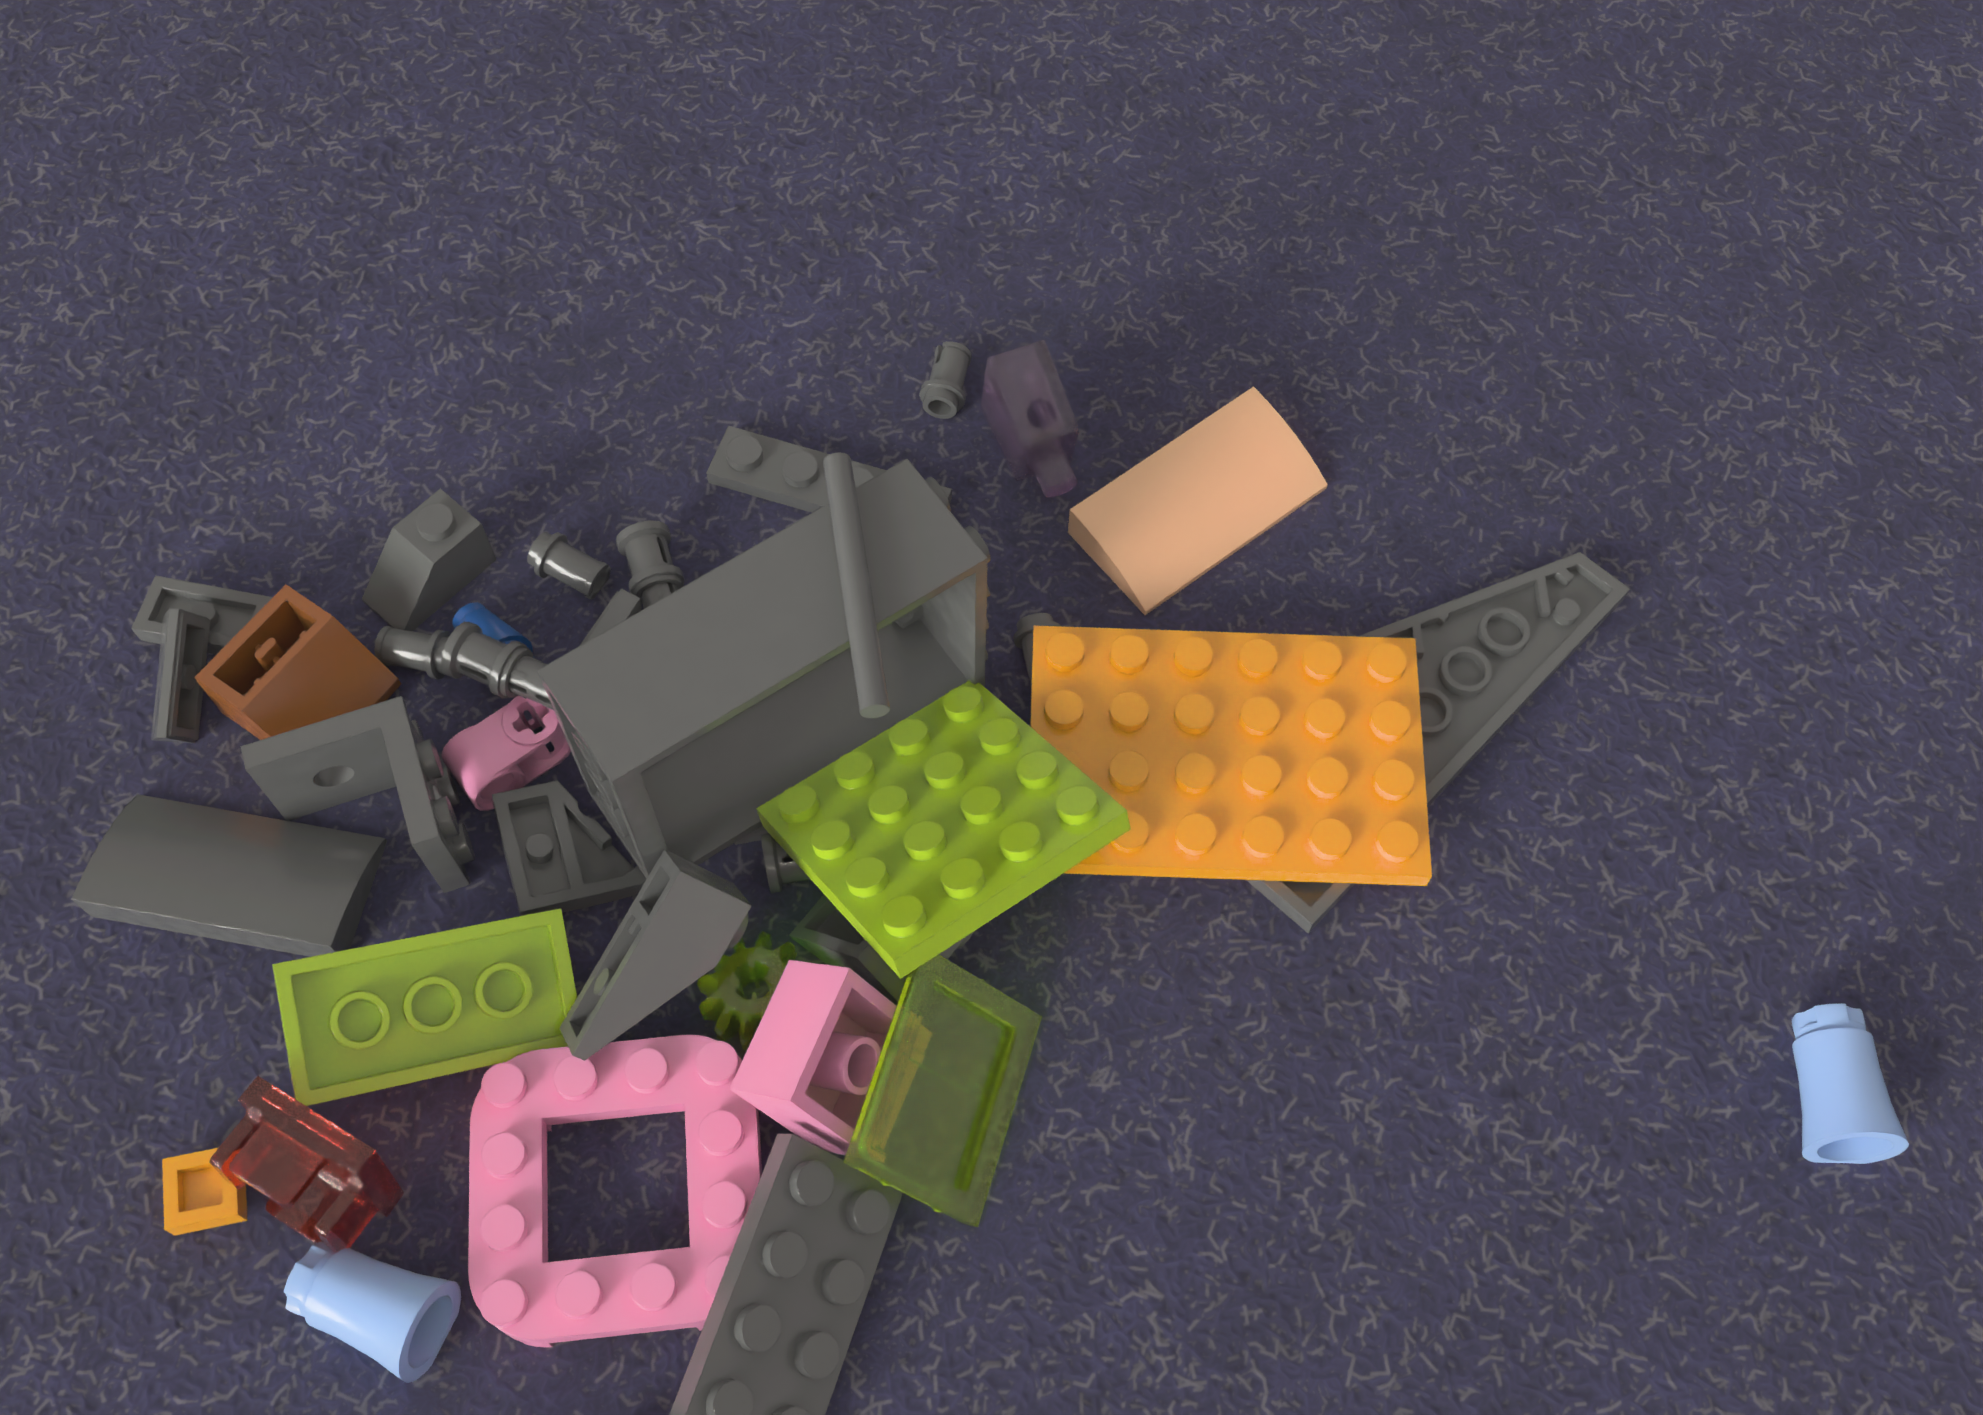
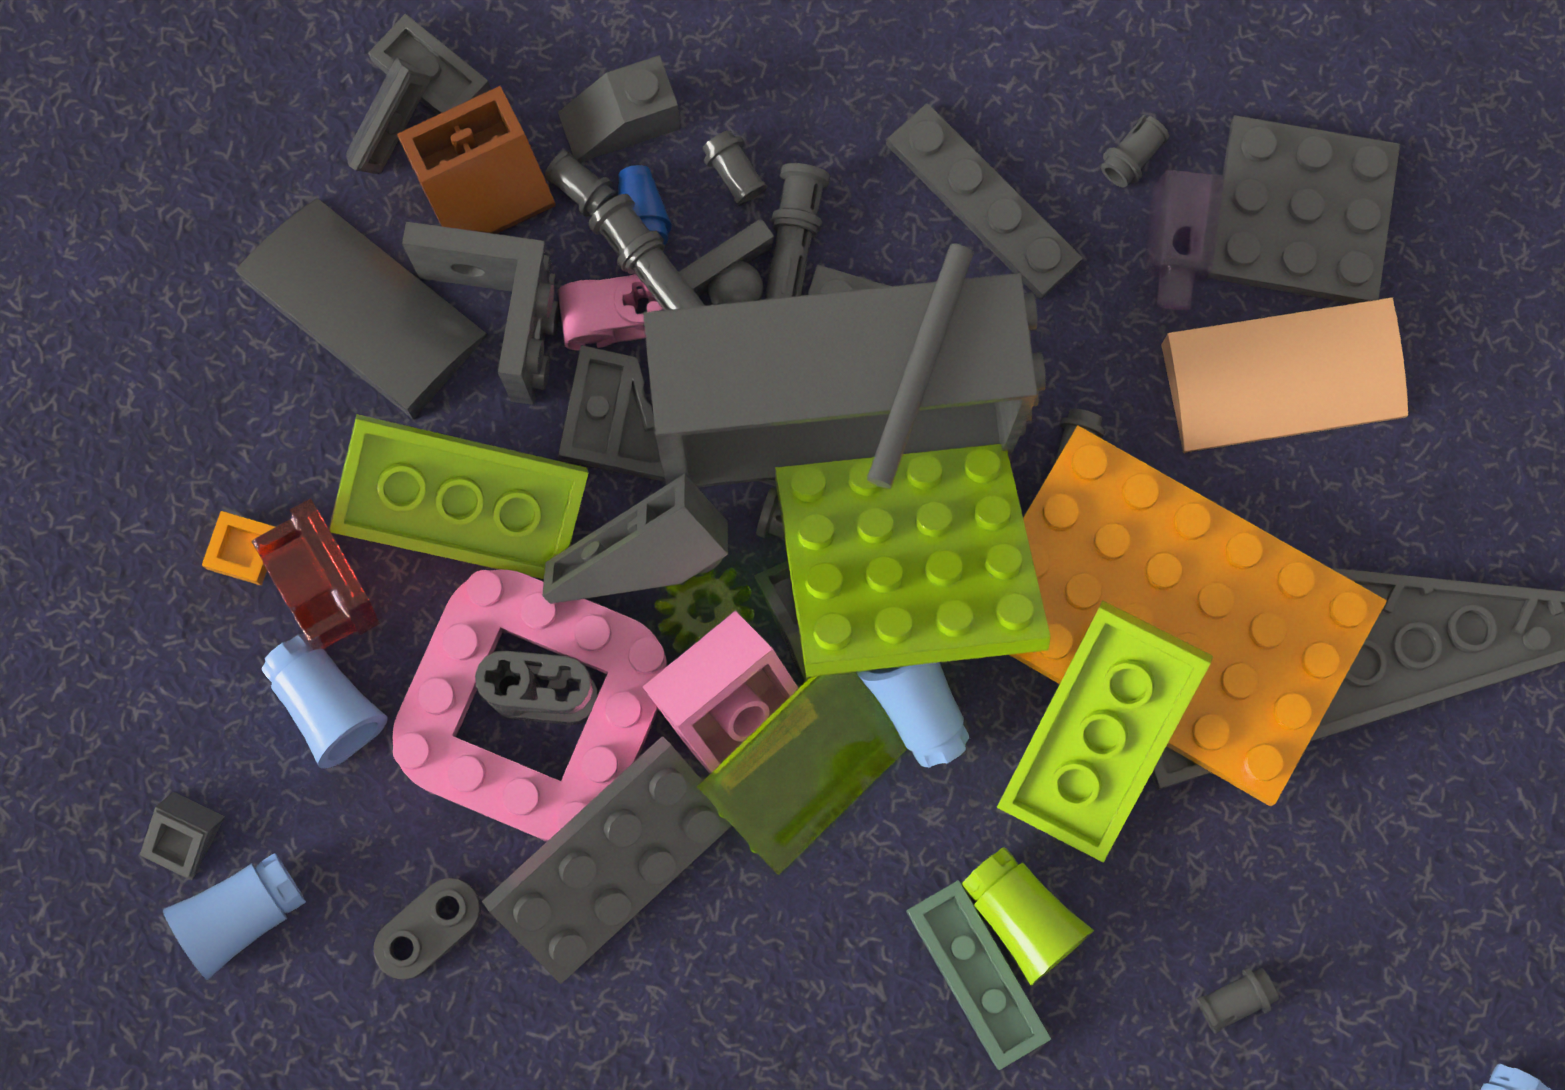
camera: 30 degrees right, 15 degrees up
(583, 1167) = (528, 699): none -> dark grey connector
(1029, 966) = (921, 710): none -> light blue plant
(1132, 360) = (1304, 210): none -> dark grey plate
(1228, 891) = (1104, 731): none -> lime plate
(1244, 1213) = (978, 975): none -> sand green plate
(1255, 1121) = (1024, 914): none -> lime plant
(1513, 1092) = (1238, 999): none -> dark grey pin

